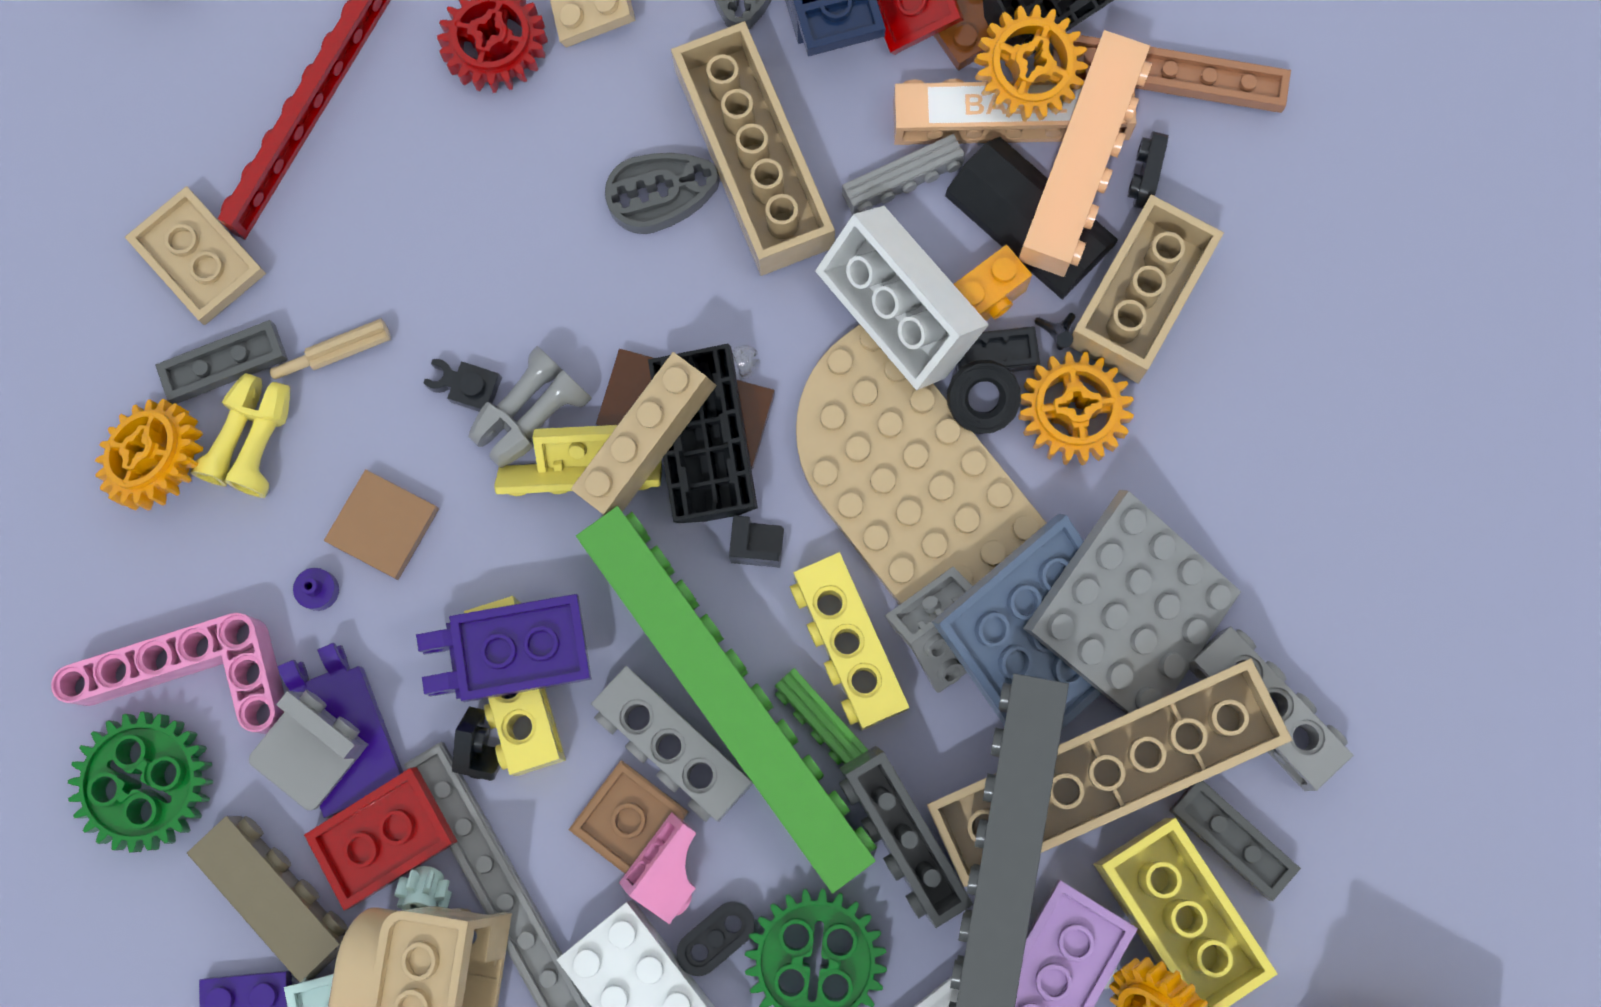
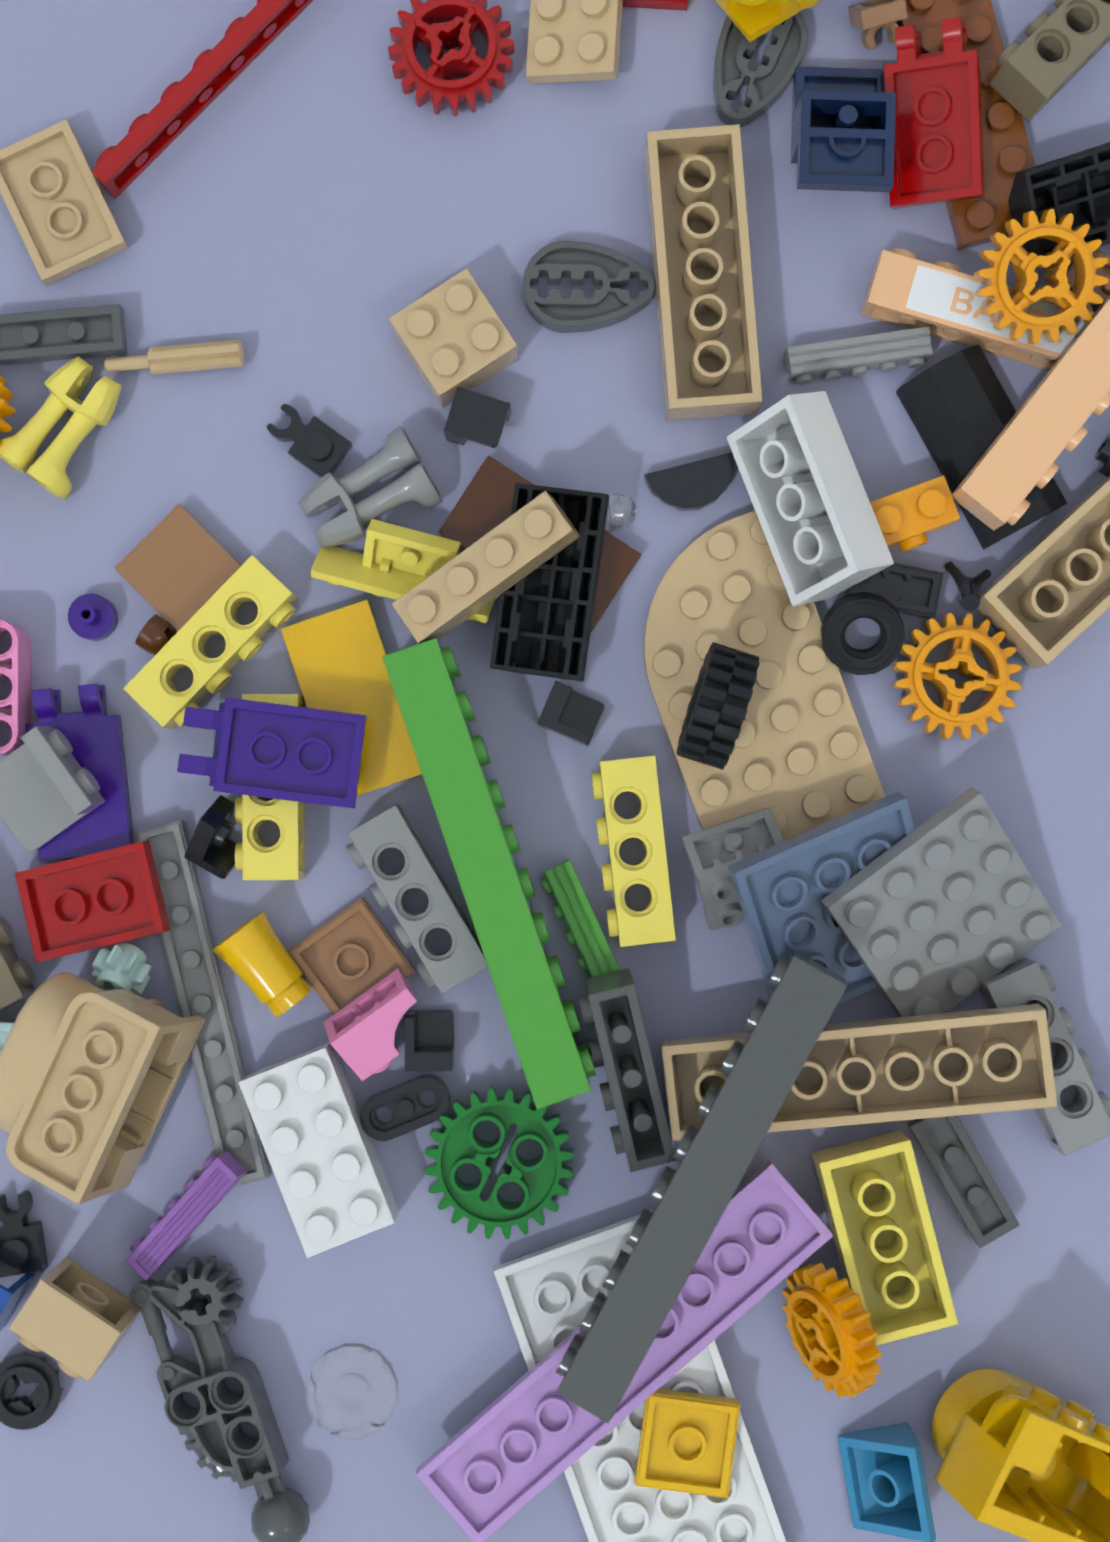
camera: 10 degrees right, 10 degrees up
(375, 587) = (155, 635): none -> reddish brown hinge
(404, 590) = (154, 683): none -> light yellow brick
(547, 561) = (344, 671): none -> yellow tile
(549, 846) = (263, 964): none -> yellow plant
(561, 261) = (454, 337): none -> tan brick
(599, 320) = (476, 418): none -> black panel
(719, 869) = (429, 1040): none -> black panel
(799, 320) = (692, 484): none -> black tile
(879, 489) = (718, 706): none -> black tyre

